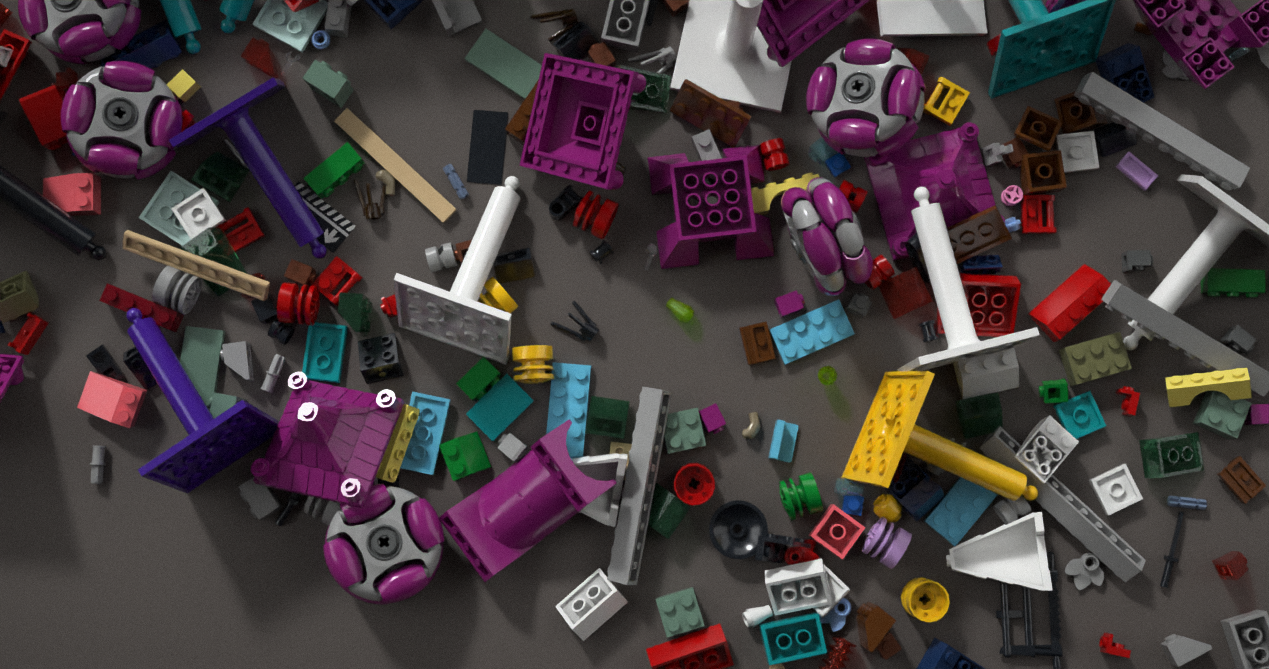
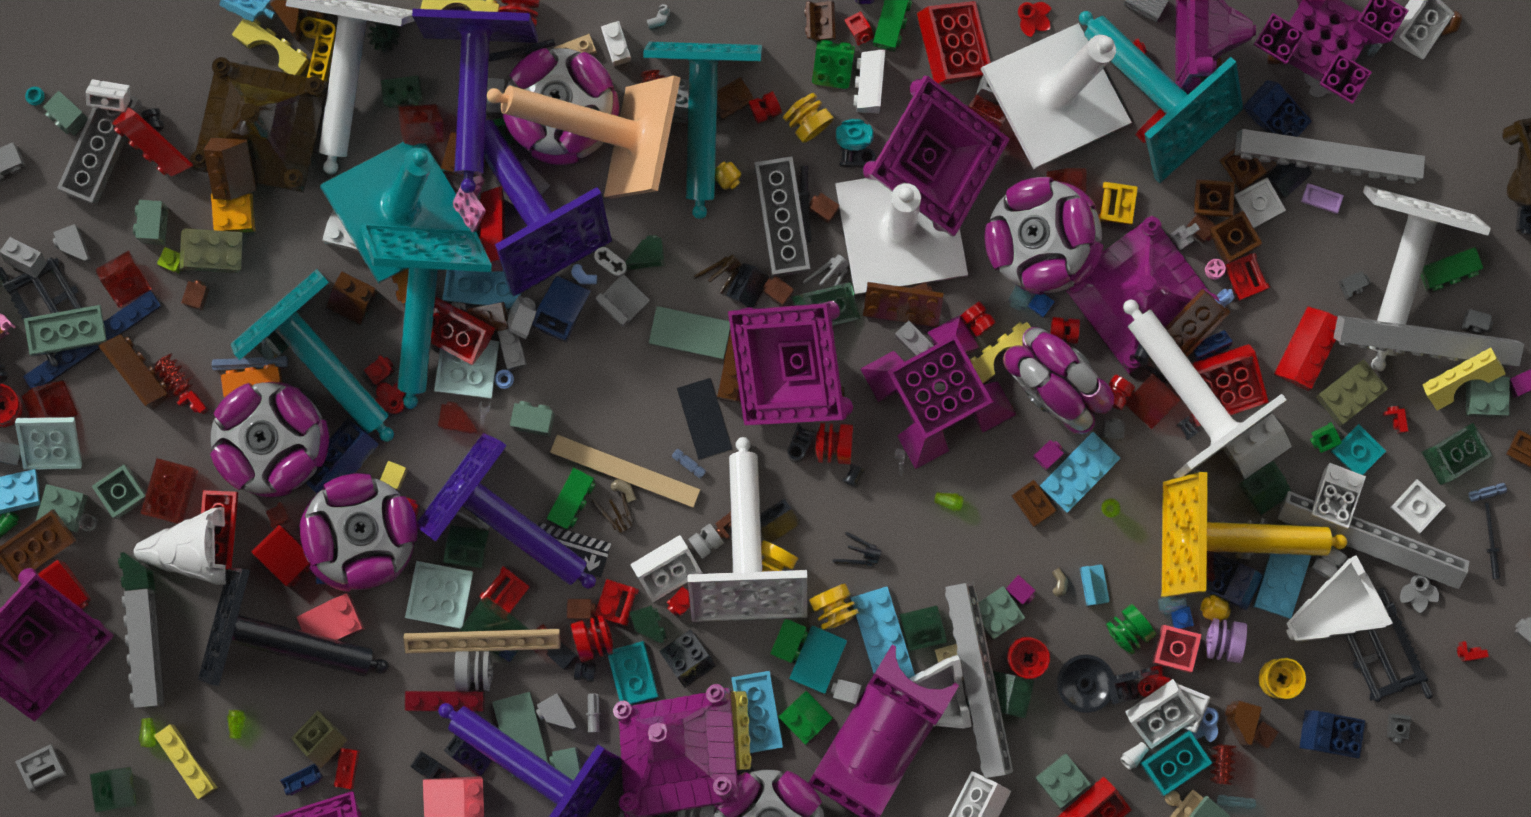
camera: 20 degrees left, 0 degrees up
(198, 213) = (462, 592): white plate -> none
(210, 16) = (388, 395): none -> red plate
(383, 264) = (665, 568): none -> white slope

